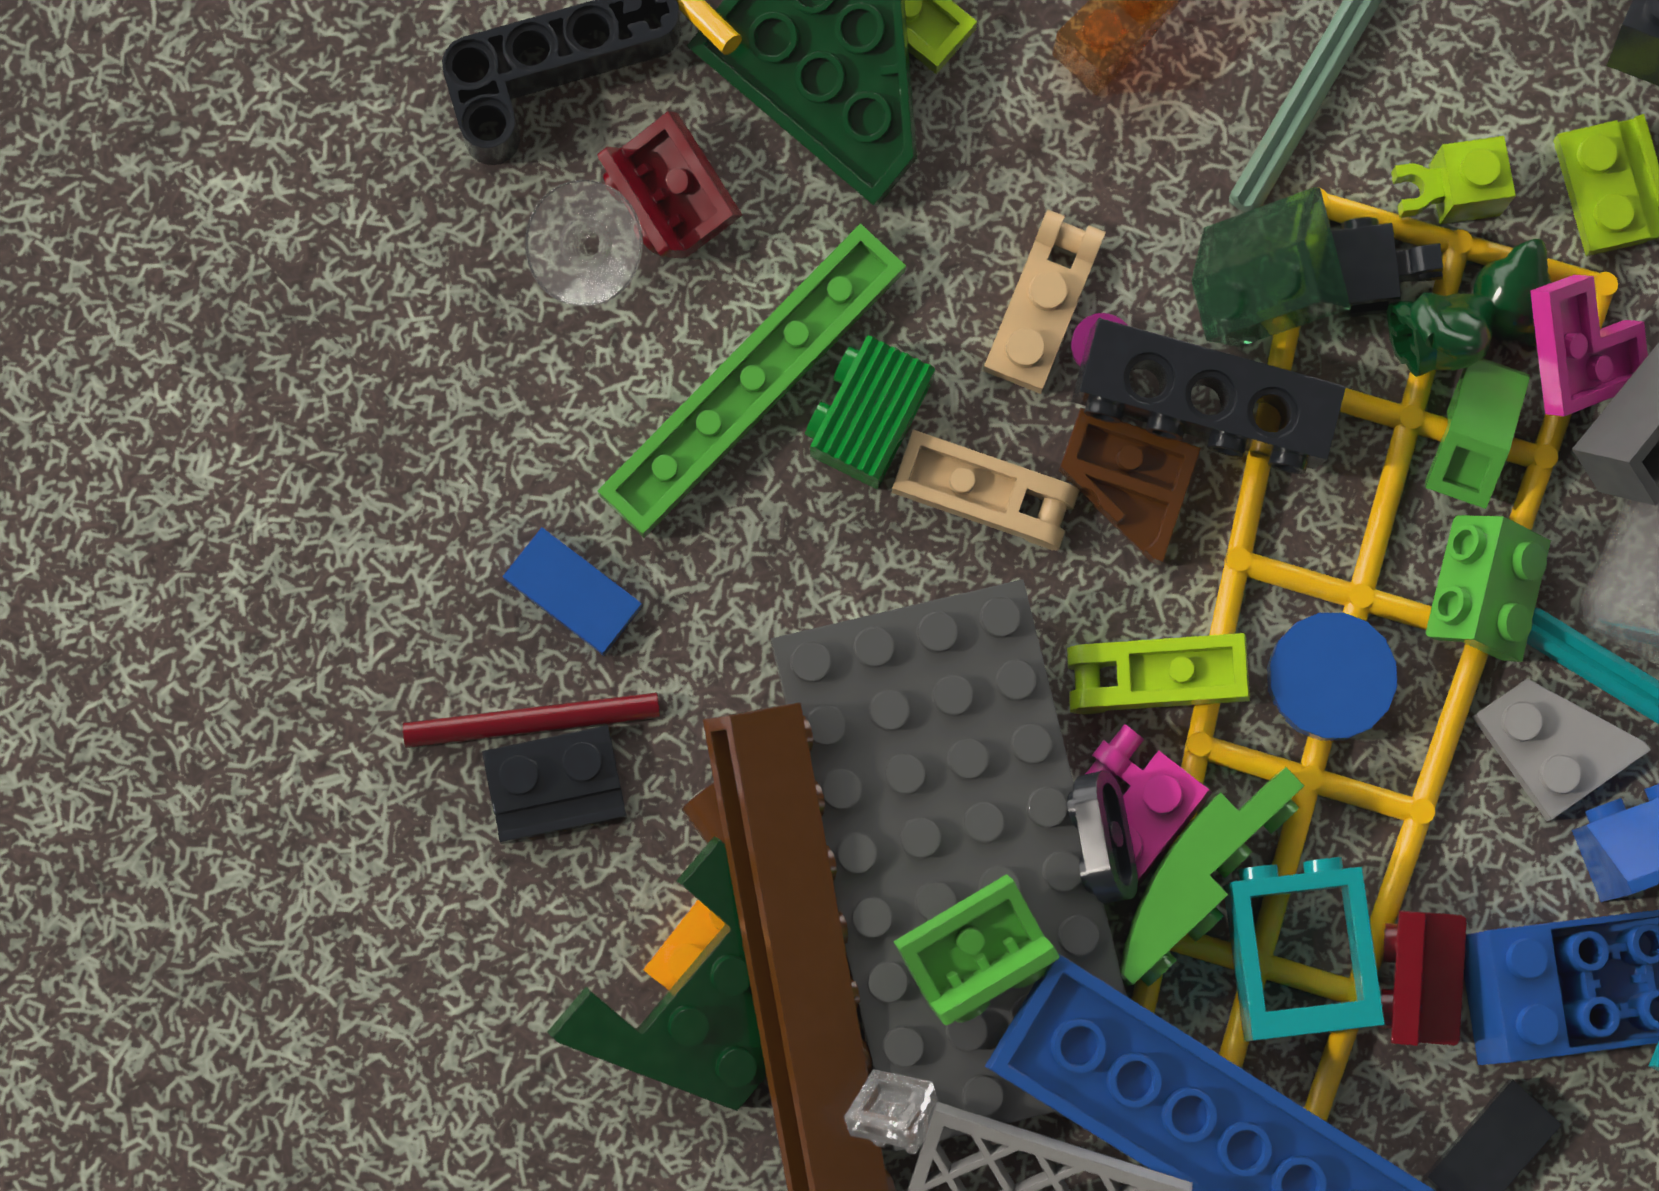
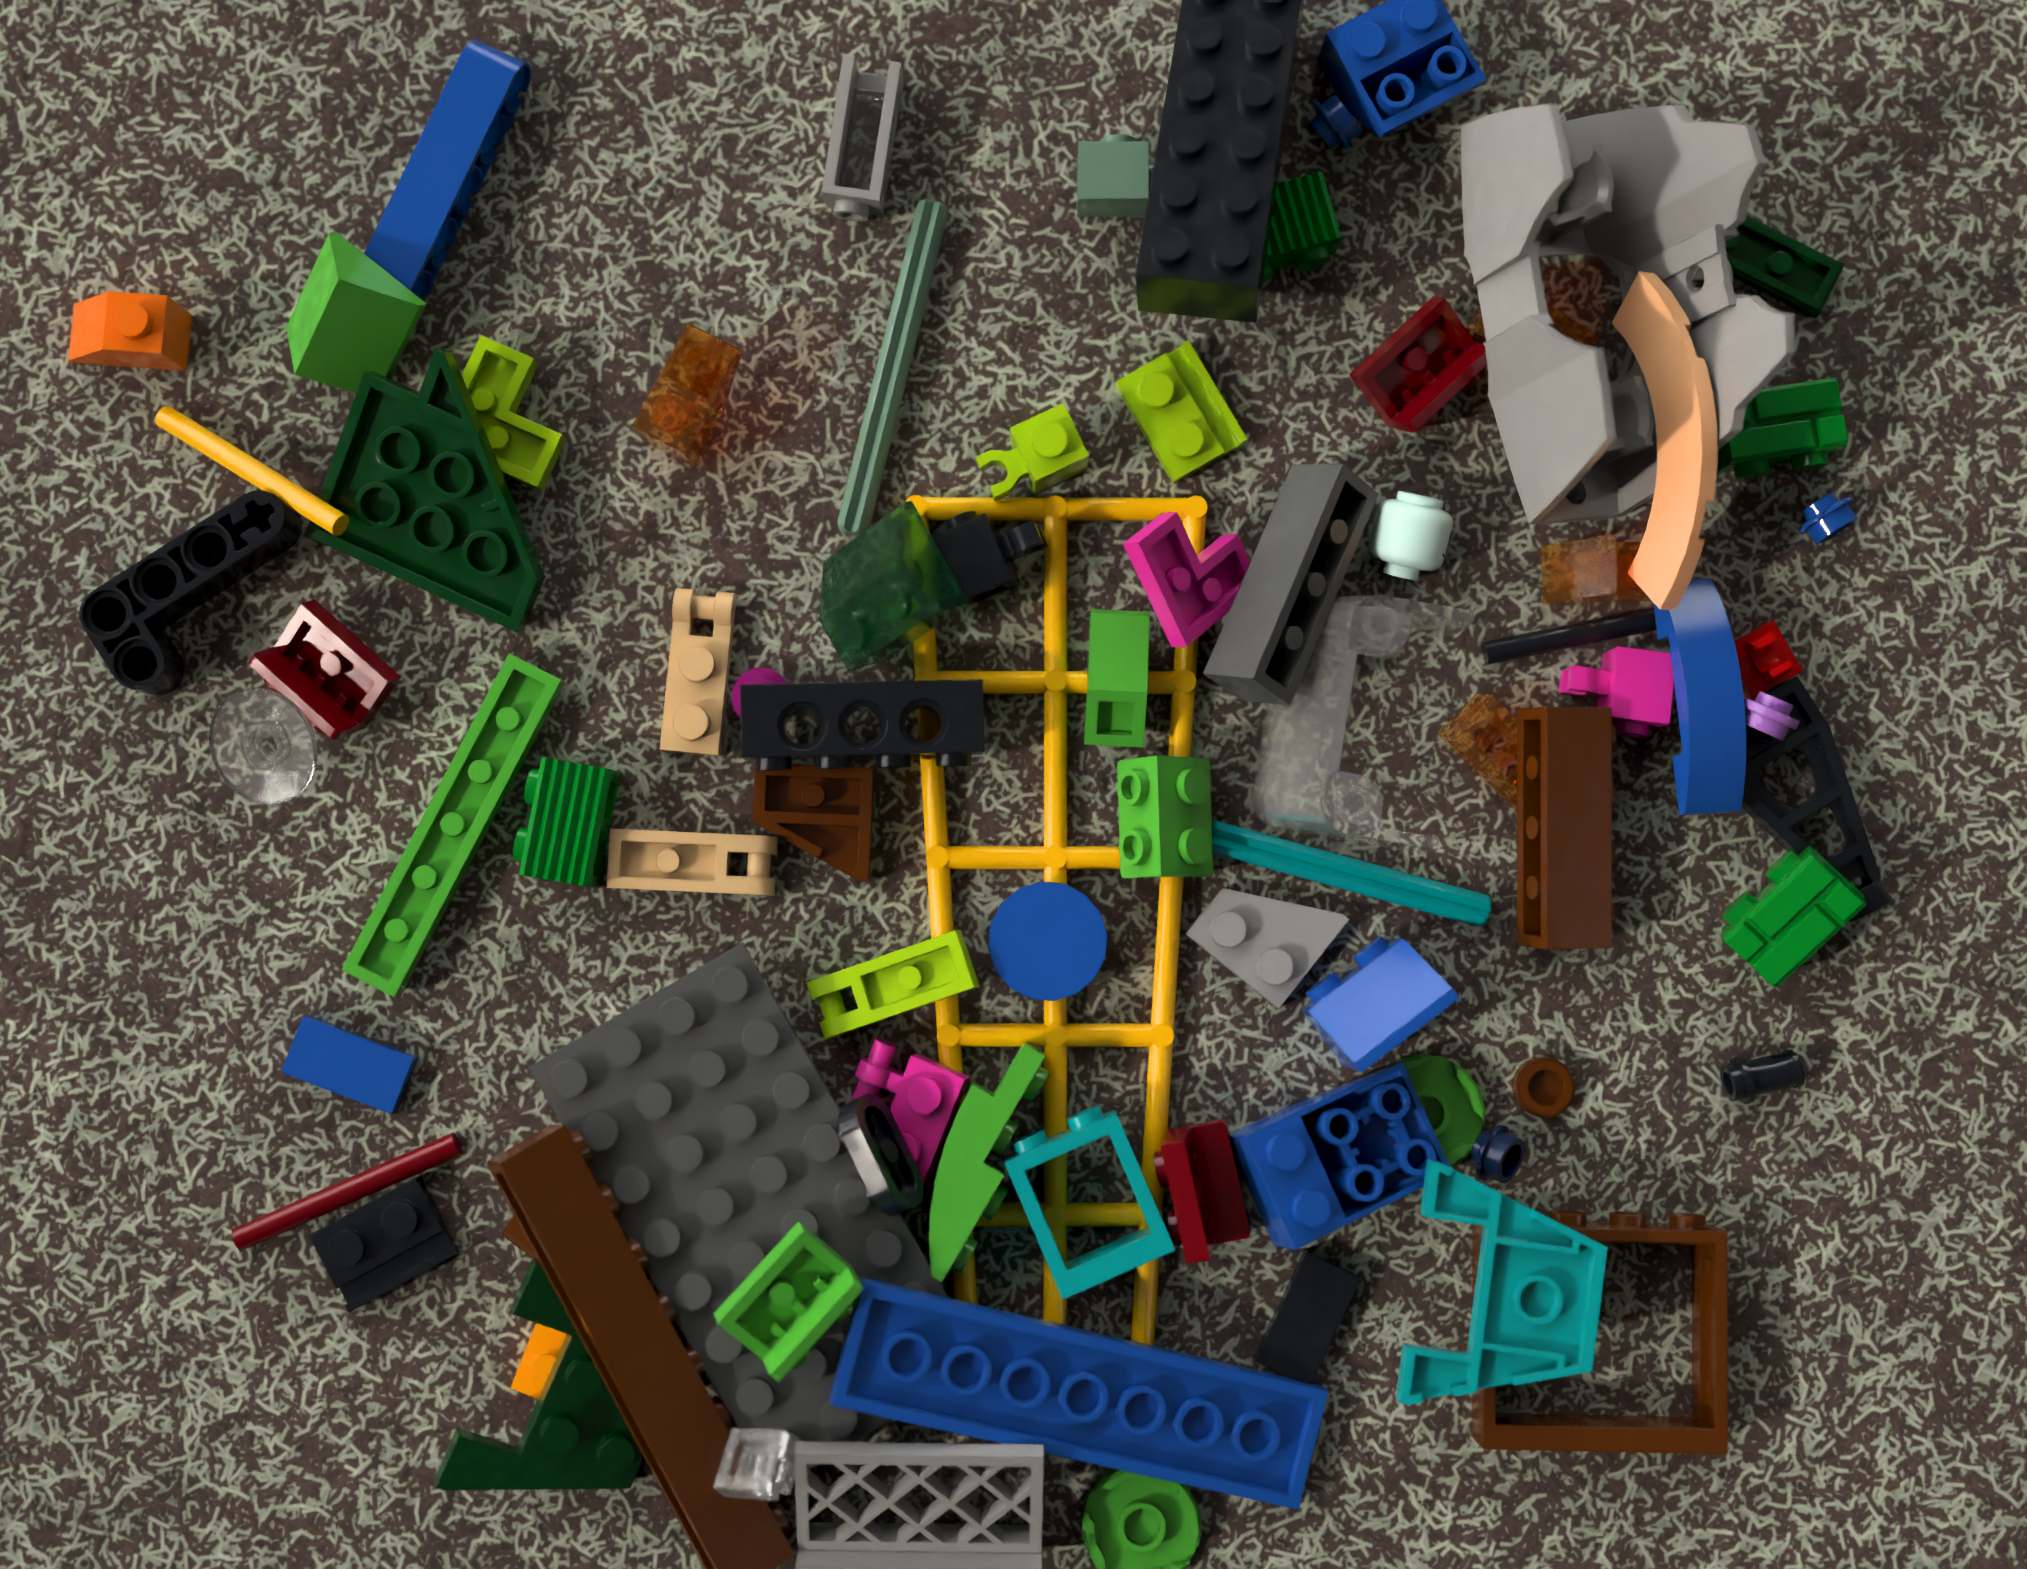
camera: 15 degrees left, 5 degrees up
(1458, 328) = (1068, 594): dark green animal -> none

